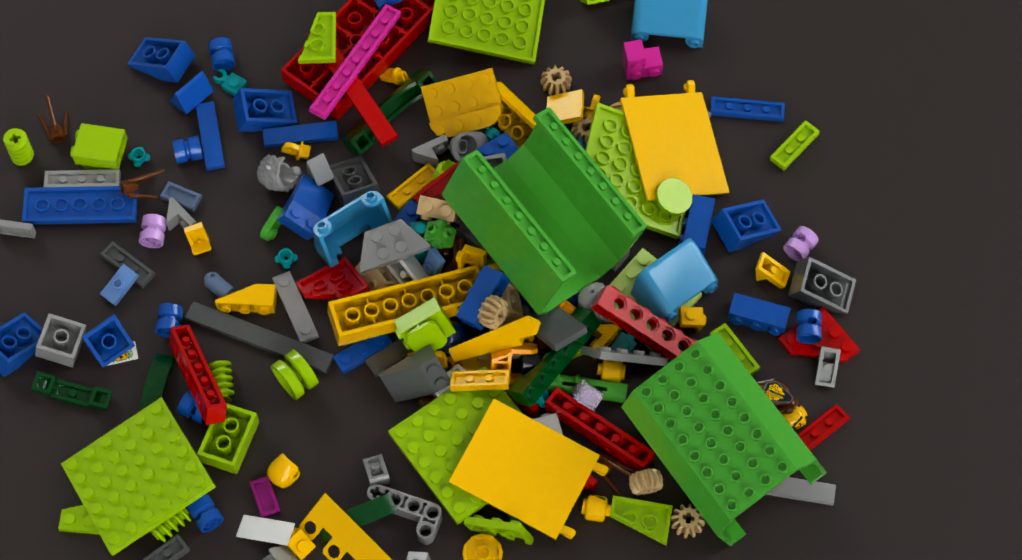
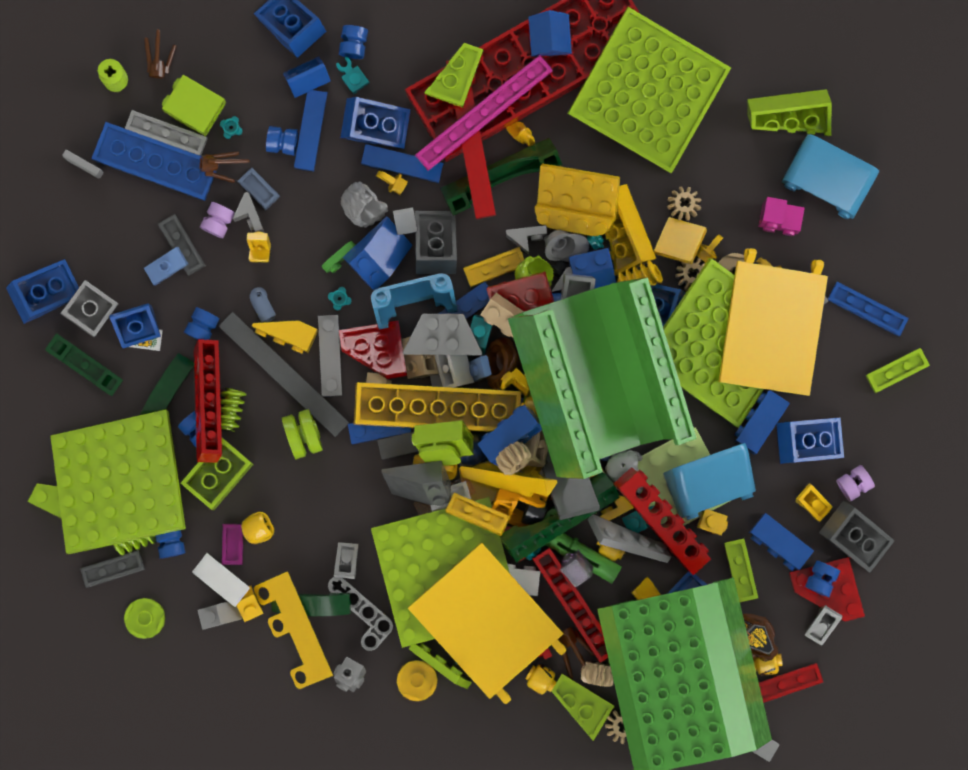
camera: 20 degrees right, 20 degrees up
(439, 234) = (495, 345): bright green brick -> none
(673, 196) = (747, 387): lime tile -> none

